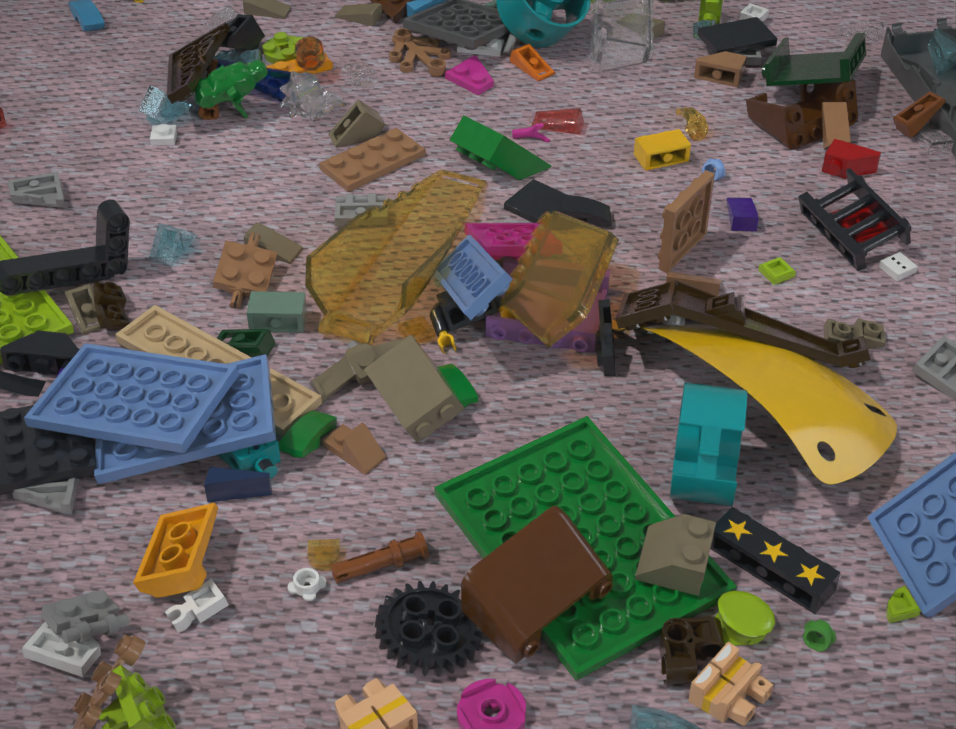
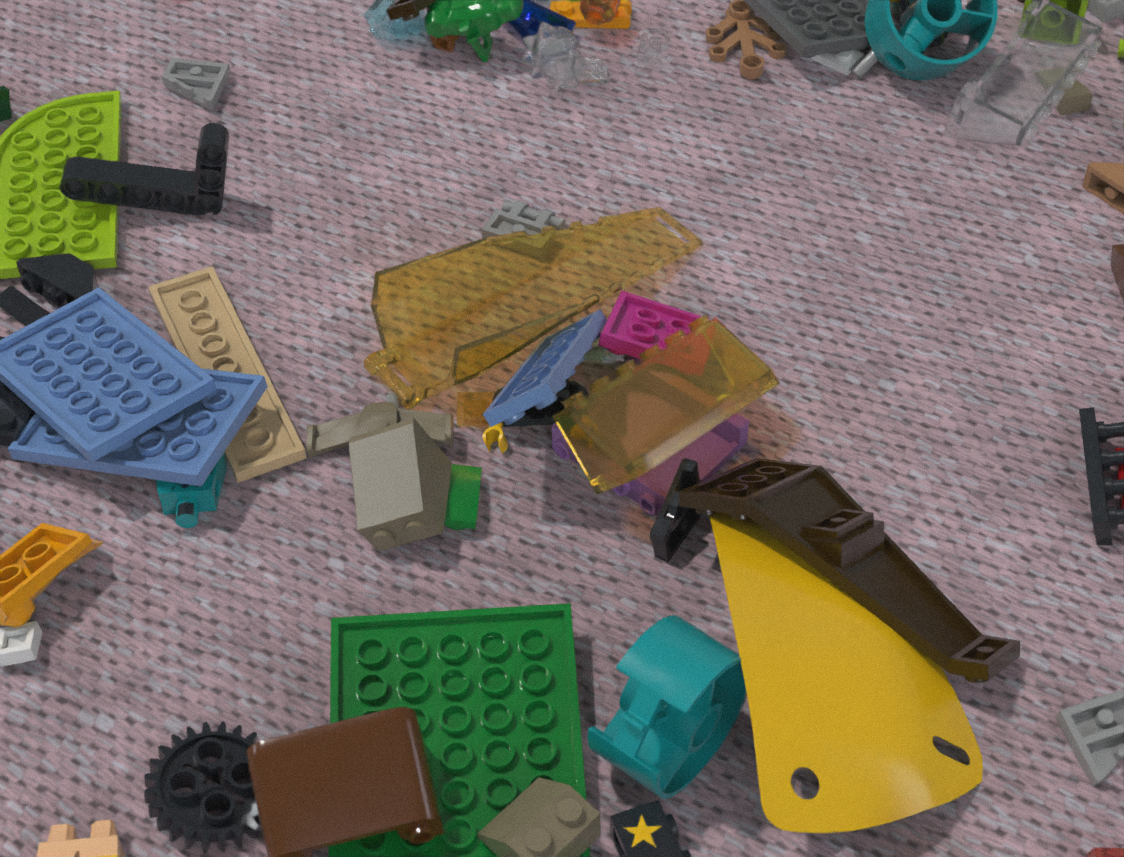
camera: 30 degrees right, 5 degrees up
(83, 308) = (146, 243): dark tan slope -> none
(110, 305) = (168, 250): dark brown slope -> none
(163, 134) = (376, 54): white plate -> none
(170, 244) = (286, 195): clear light blue slope -> none
(232, 484) = (136, 517): dark blue slope -> none
(244, 269) = (337, 258): medium nougat plate -> none
(249, 341) = (282, 351): dark green slope -> none
(271, 240) = (392, 234): dark tan slope -> none
(277, 311) = (334, 324): sand green panel -> none
(303, 577) = (132, 662): white plate -> none
(306, 434) = (252, 491): green slope -> none
(323, 553) = (177, 643): clear yellow tile -> none
(355, 447) = (300, 529): medium nougat slope -> none
(357, 125) = (596, 115): dark tan slope -> none
(372, 159) = (587, 165): medium nougat plate -> none
(395, 554) = (244, 679): dark orange pin -> none
(471, 76) = (787, 91): dark pink wing -> none
(495, 150) = (737, 206): green wedge -> none
(530, 132) = (804, 194): dark pink bar -> none
(531, 62) = (876, 97): orange slope -> none
(534, 201) = (747, 299): black tile -> none
(560, 120) = (867, 202): clear red slope -> none
(582, 207) = (794, 328): black slope -> none
(662, 149) = (953, 276): yellow brick -> none
(685, 221) = (886, 390): medium nougat plate -> none
(696, 123) = (1026, 253): clear yellow piece -> none
(706, 284) = (858, 478): medium nougat slope -> none
(711, 164) = (1003, 326): light blue plate -> none
(742, 214) = (996, 404): dark purple slope -> none
(777, 270) = (982, 502): lime tile -> none
(840, 331) = (1036, 637): dark tan slope -> none

